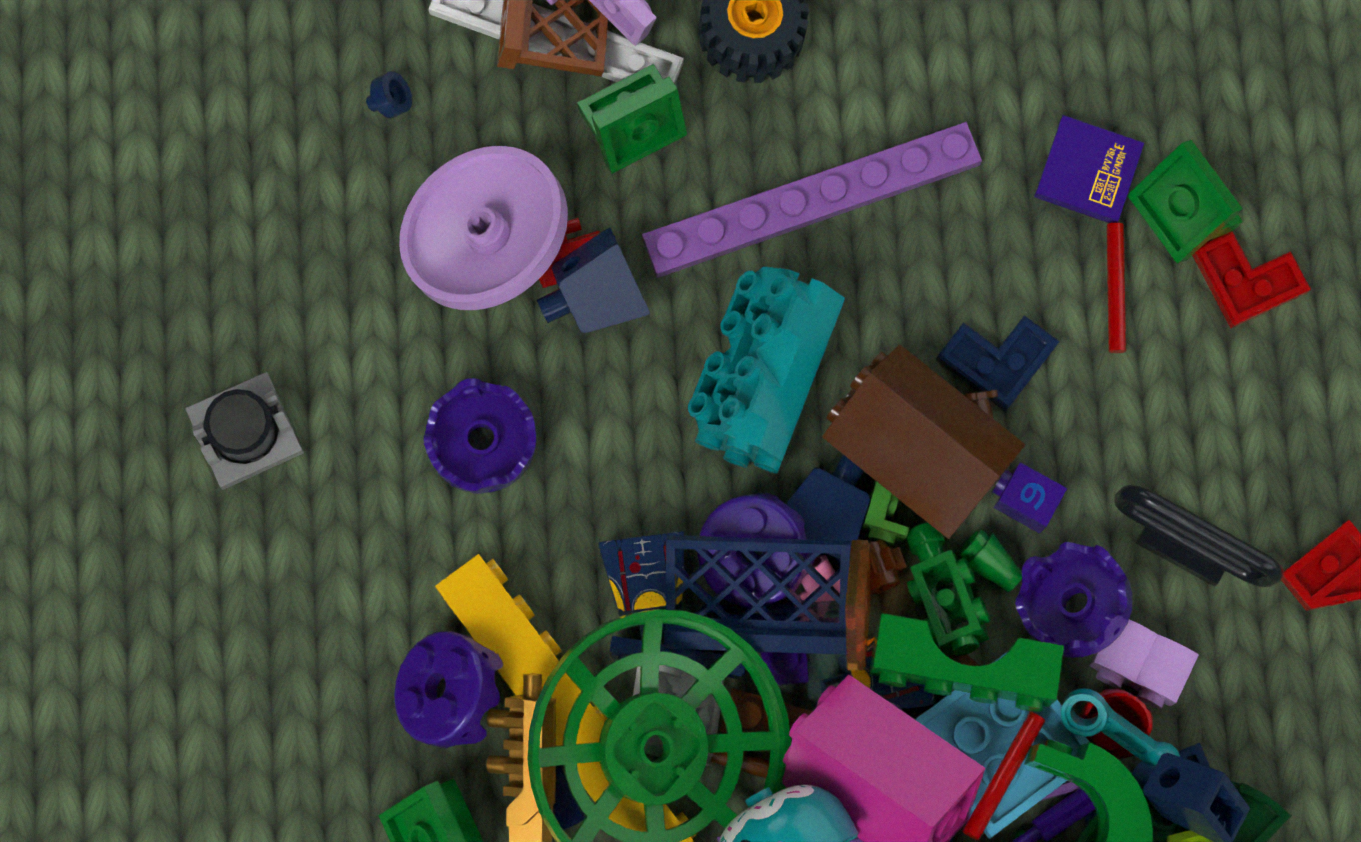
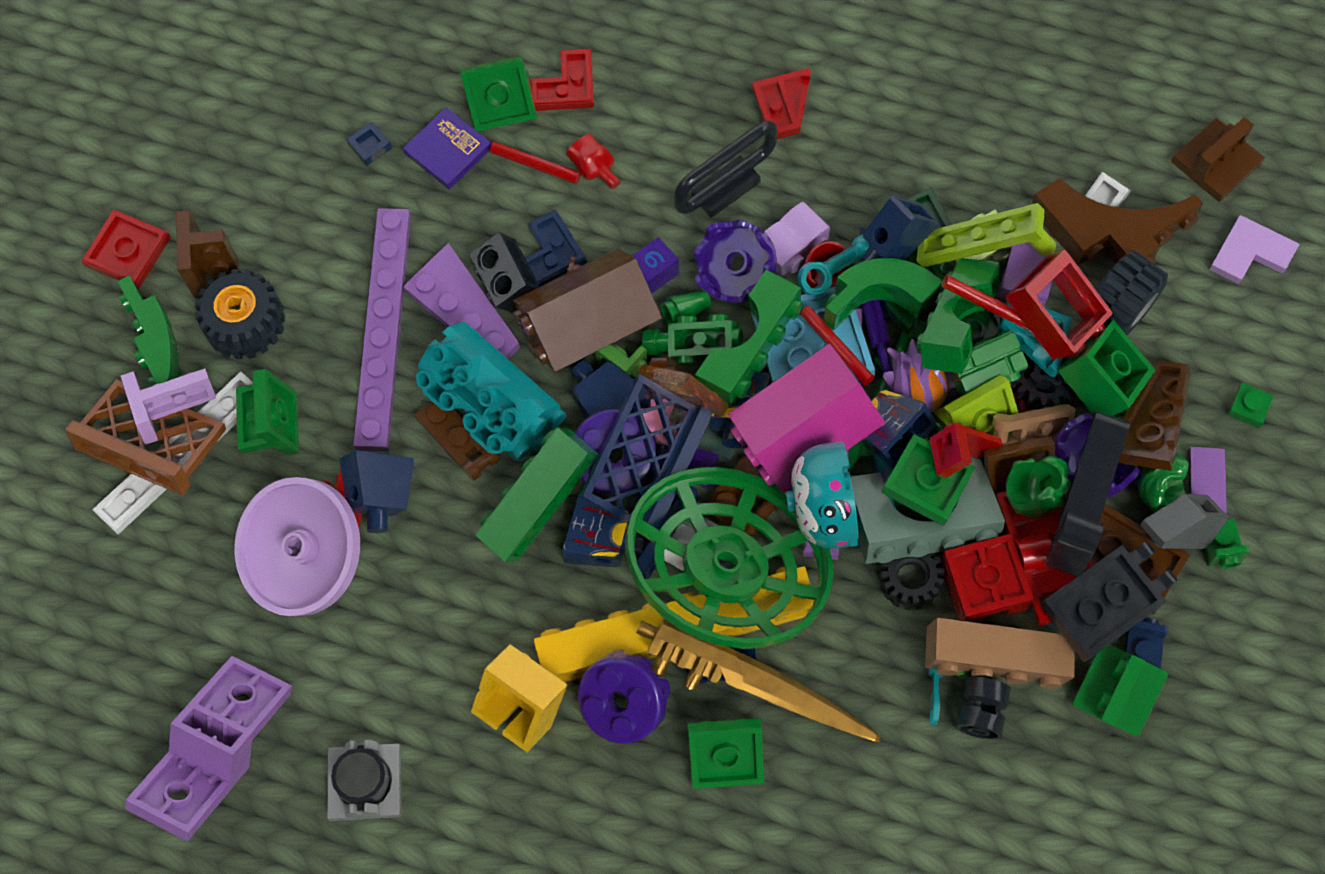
camera: 60 degrees left, 10 degrees down
(210, 239) = (208, 748): none -> medium lavender bracket
(389, 95) = (164, 581): dark blue tile -> none
(413, 562) = (515, 682): none -> yellow piece
(474, 406) = (433, 591): dark purple plate -> none
(657, 481) = (536, 494): none -> green brick
(701, 342) = (450, 434): none -> reddish brown plate
(883, 274) = (454, 297): none -> medium lavender wing
(946, 322) = (509, 270): none -> black brick
(1051, 70) = (369, 143): none -> dark blue plate
(1149, 360) = (593, 160): none -> red piece

